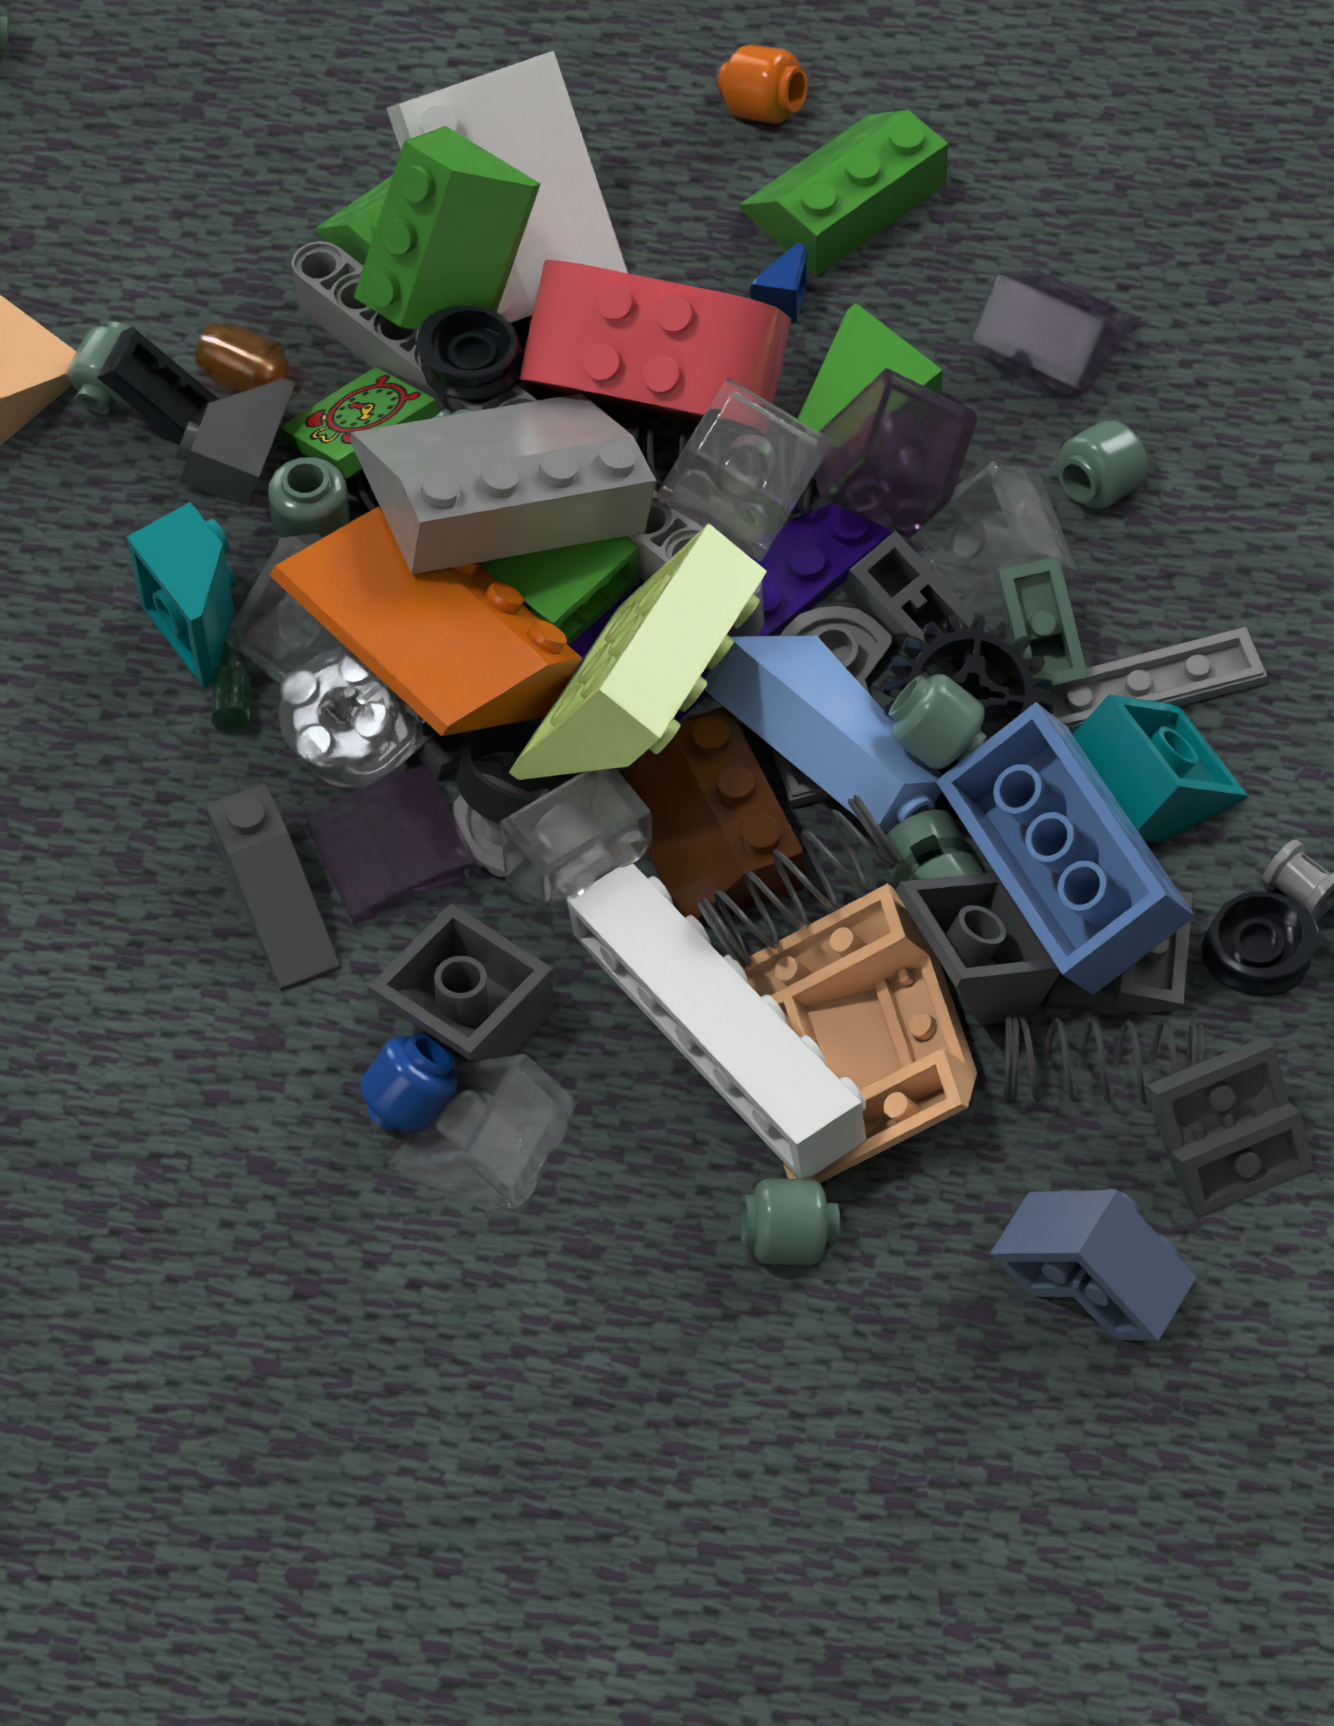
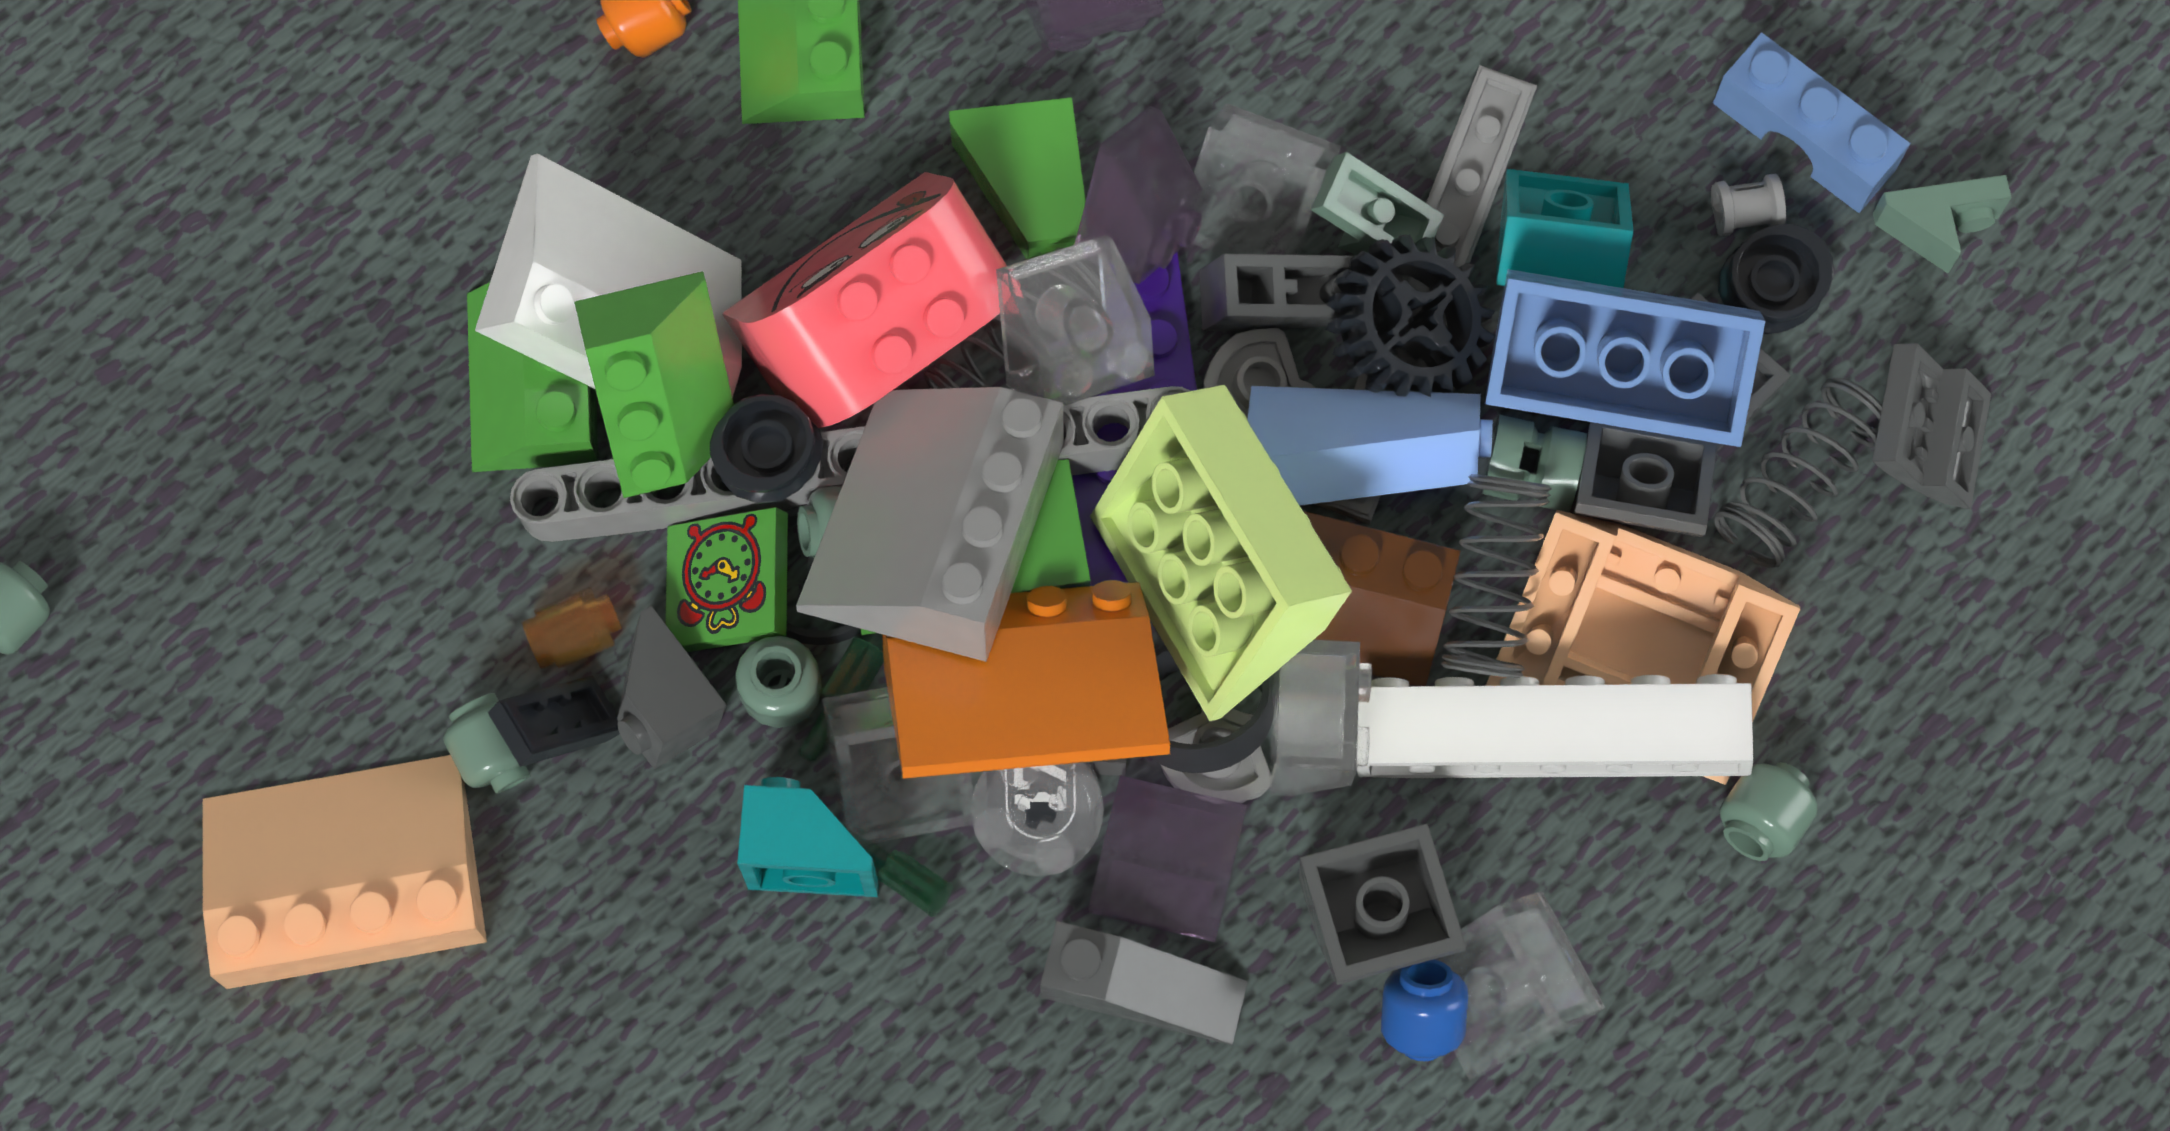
camera: 55 degrees left, 15 degrees up
(784, 282) = (873, 151): blue slope -> none
(937, 721) = (1444, 361): sand green head -> none
(1101, 1255) = (1976, 611): sand blue brick -> none
(1102, 464) = (1248, 49): sand green head -> none

